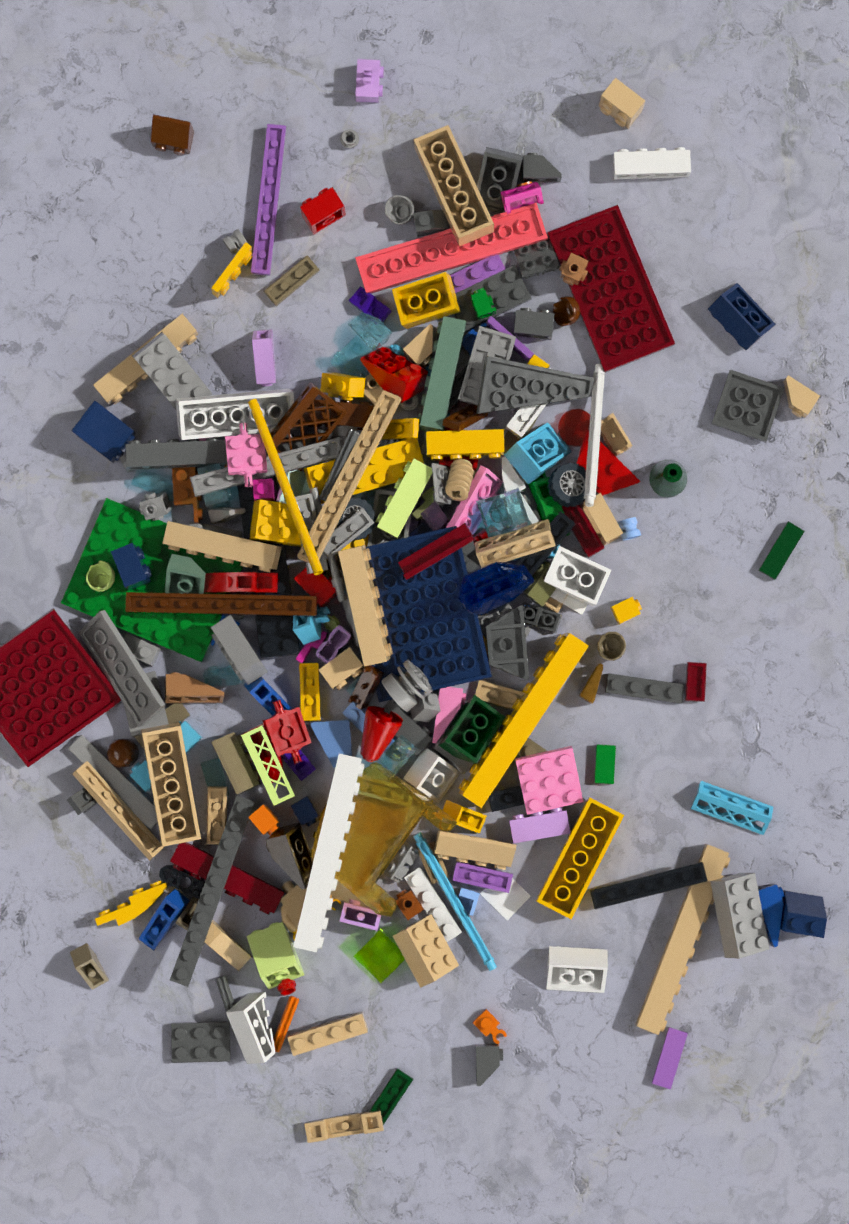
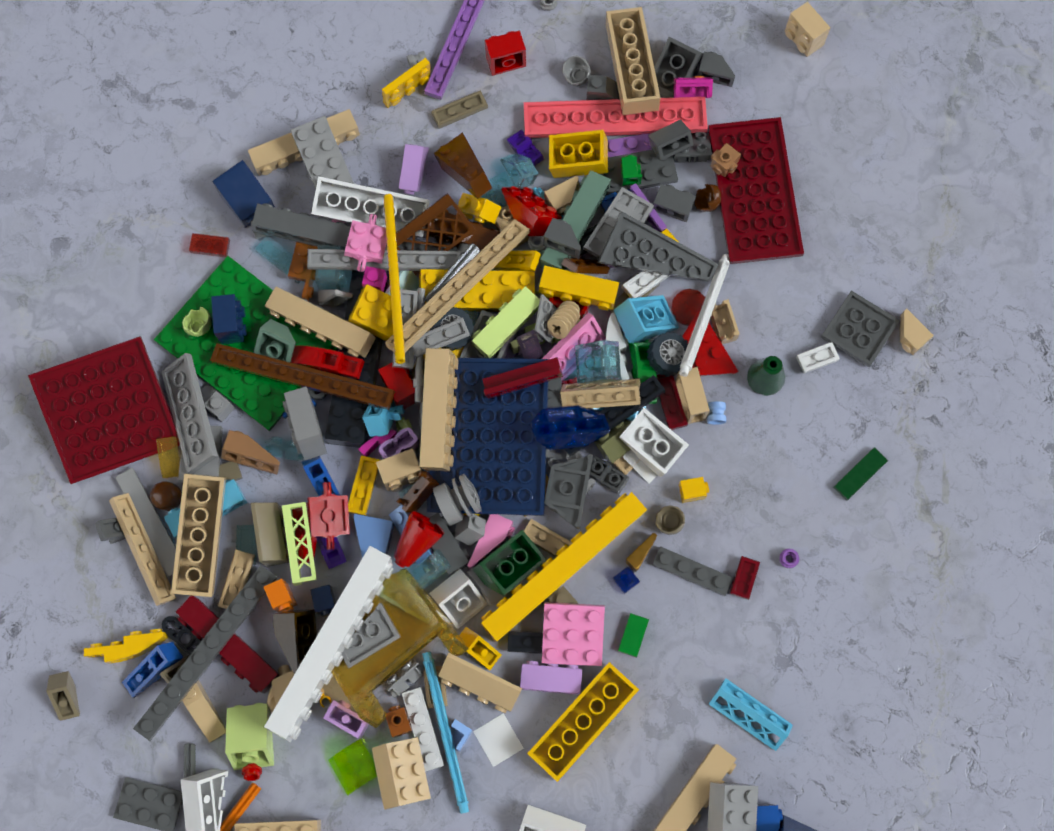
camera: 15 degrees right, 10 degrees down
(84, 492) = (209, 245): none -> clear red plate
(114, 715) = (168, 457): none -> clear yellow slope
(155, 505) = (270, 273): light grey brick -> none
(313, 343) = (462, 165): none -> reddish brown wedge
(364, 831) = (373, 635): none -> light grey wing
(436, 399) = (562, 238): none -> dark grey slope
(482, 877) = (480, 714): medium lavender plate -> none
(514, 261) = (670, 139): none -> dark grey brick
(584, 713) = (626, 580): none -> clear blue tile
(649, 885) = (646, 770): black plate -> none
(651, 164) = (821, 90): white brick -> none
(713, 446) = (817, 358): none -> white plate
(739, 651) = (795, 558): none -> medium lavender plate
(741, 316) = (873, 245): dark blue slope -> none

